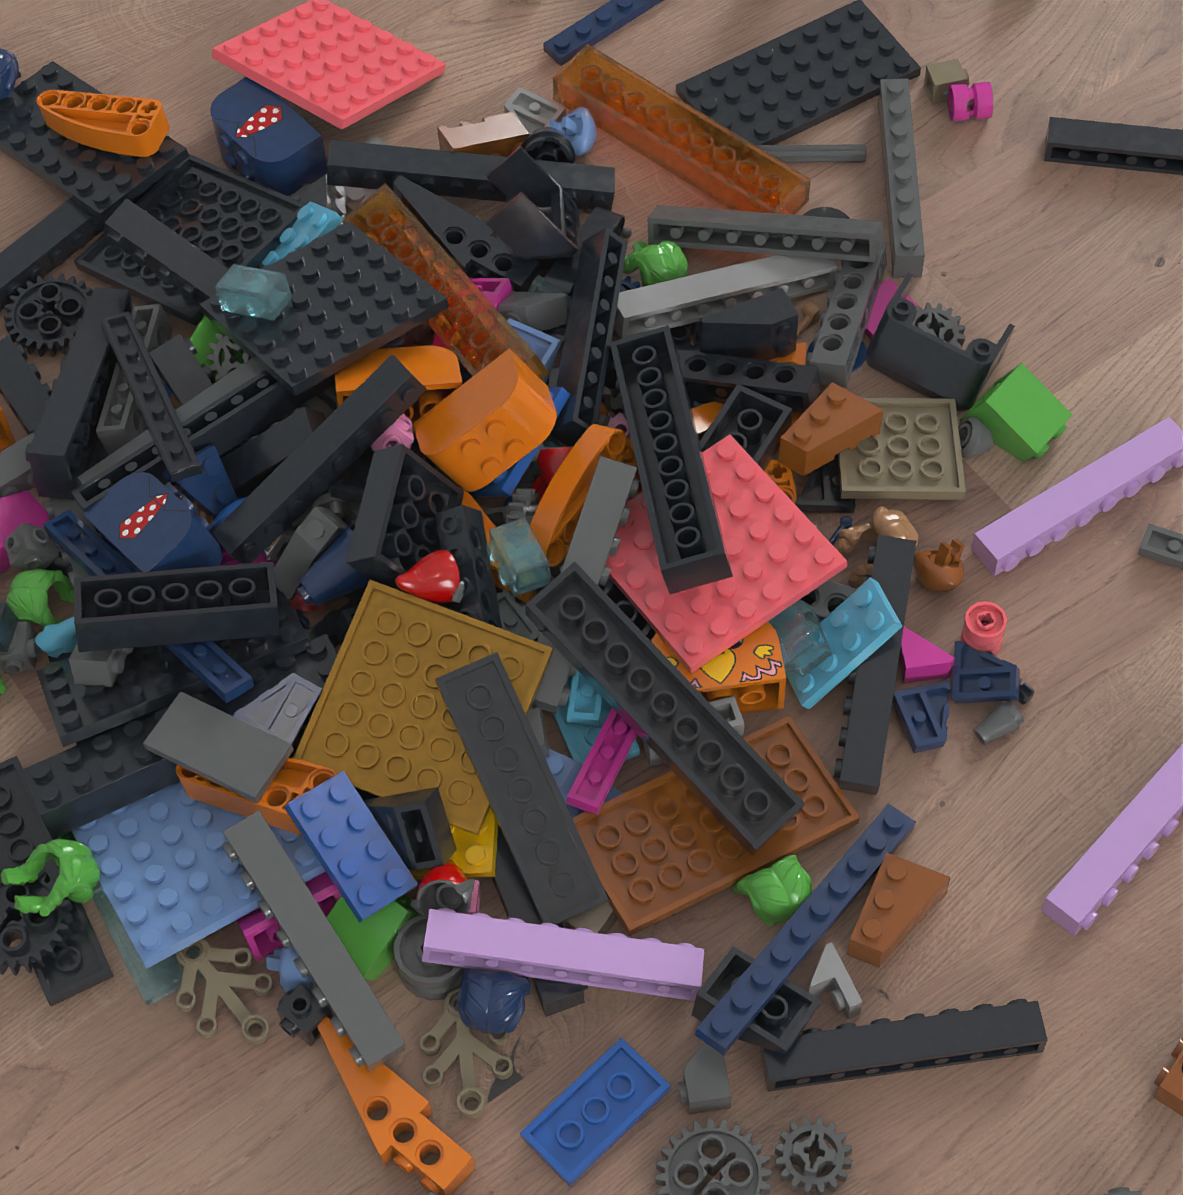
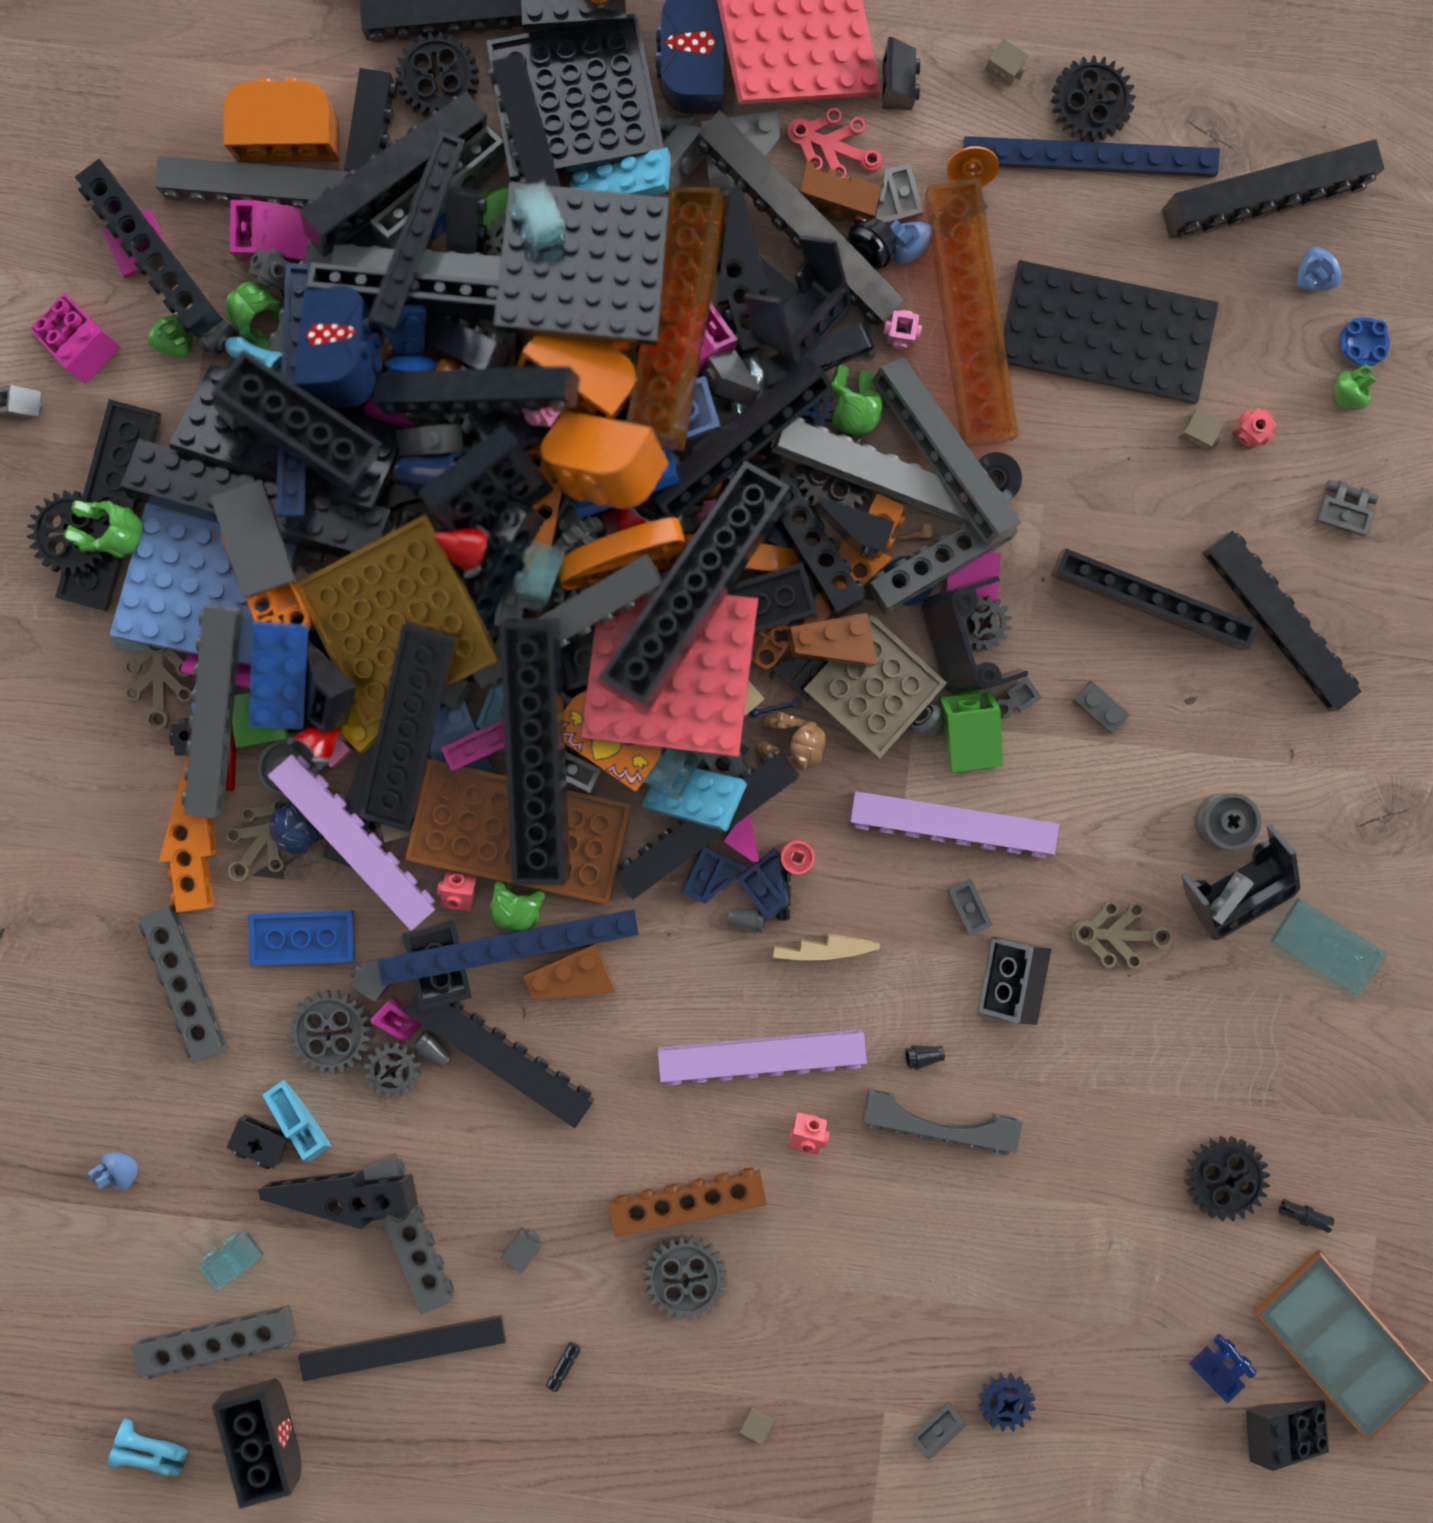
camera: 40 degrees right, 30 degrees up
(282, 708) = (311, 546): wing -> none
(414, 133) = (831, 142): none -> coral plant
(449, 41) = (899, 75): none -> black slope
(572, 36) = (973, 163): none -> orange dish
(635, 189) = (906, 321): none -> bright pink brick
(708, 925) = (457, 891): none -> coral brick
(768, 1103) = (395, 1020): none -> dark pink slope
(817, 153) = (1052, 403): dark grey axle -> none
(831, 1103) = (431, 1049): none -> dark grey cone
(833, 976) = (500, 980): light grey slope -> none
(901, 178) = (1089, 481): dark grey brick -> none
(941, 568) = (814, 792): dark orange piece -> none
(979, 97) = (1198, 464): dark pink wheel -> none
(983, 48) = (1255, 427): none -> coral brick
(1027, 354) = (1020, 696): none -> dark grey plate
(1047, 209) = (1154, 600): none -> black brick
(1095, 682) = (834, 948): none -> tan slope
(1098, 320) = (1101, 707): none -> dark grey plate
(1119, 51) = (1345, 515): none -> dark grey plate

